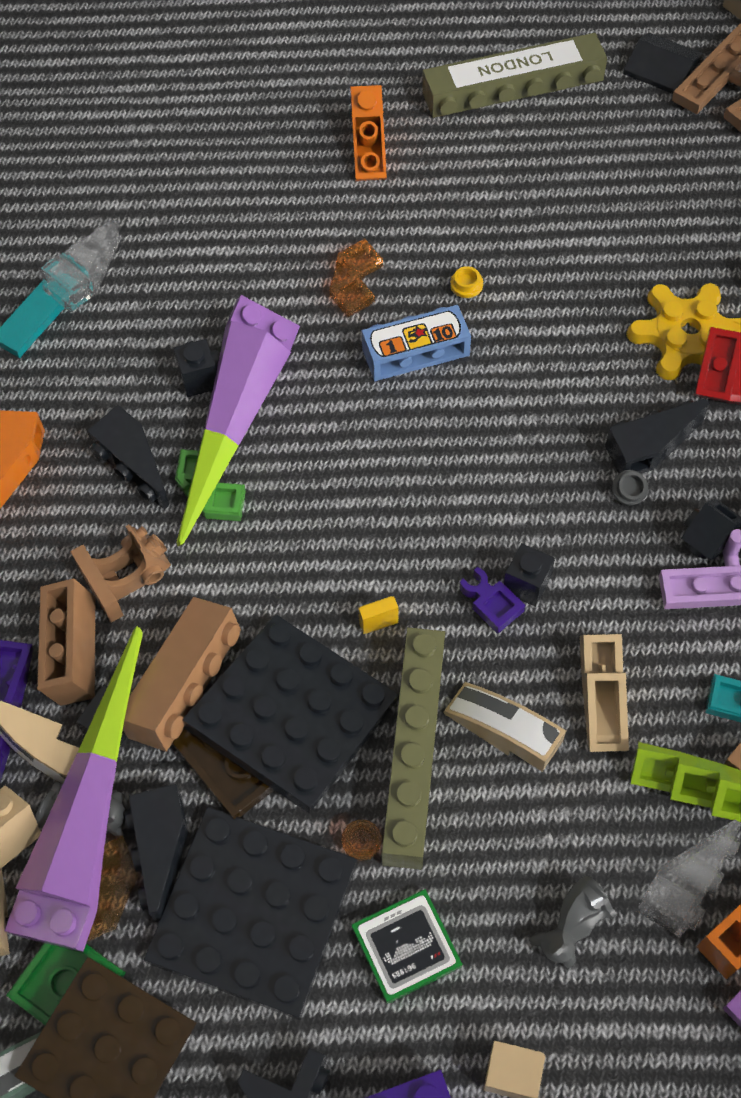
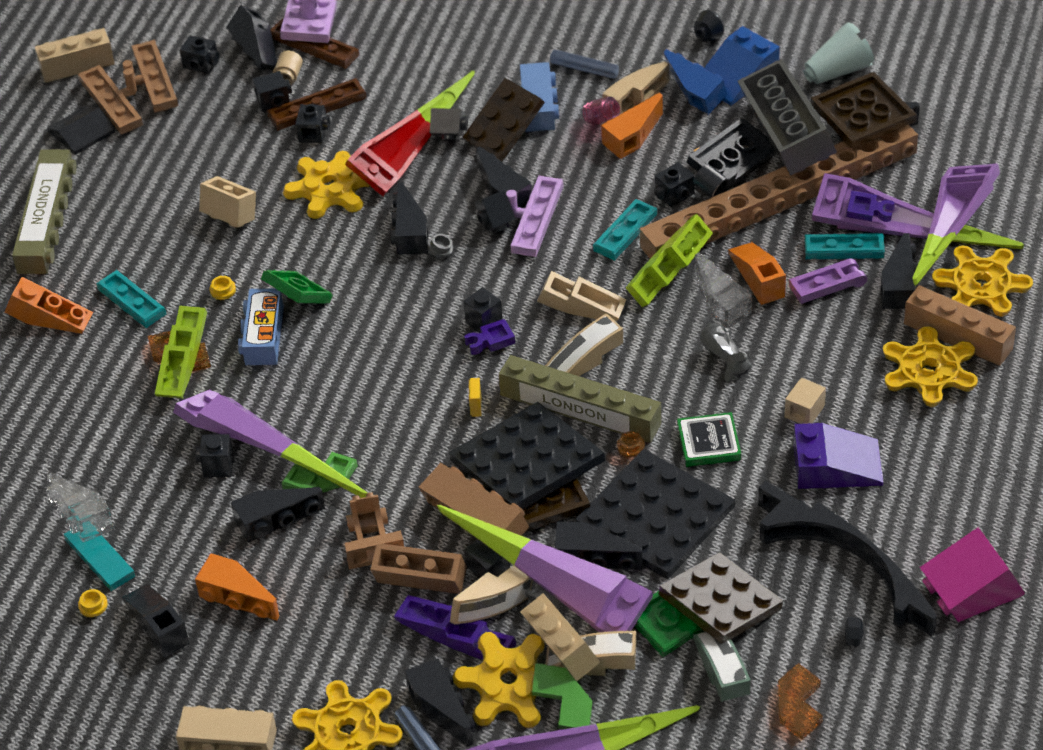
camera: 70 degrees left, 15 degrees down
(331, 278) = (181, 352): none -> lime slope
(419, 204) = (131, 298): none -> teal tile
(485, 353) = (296, 286): none -> green tile
(597, 233) = (227, 201): none -> tan brick

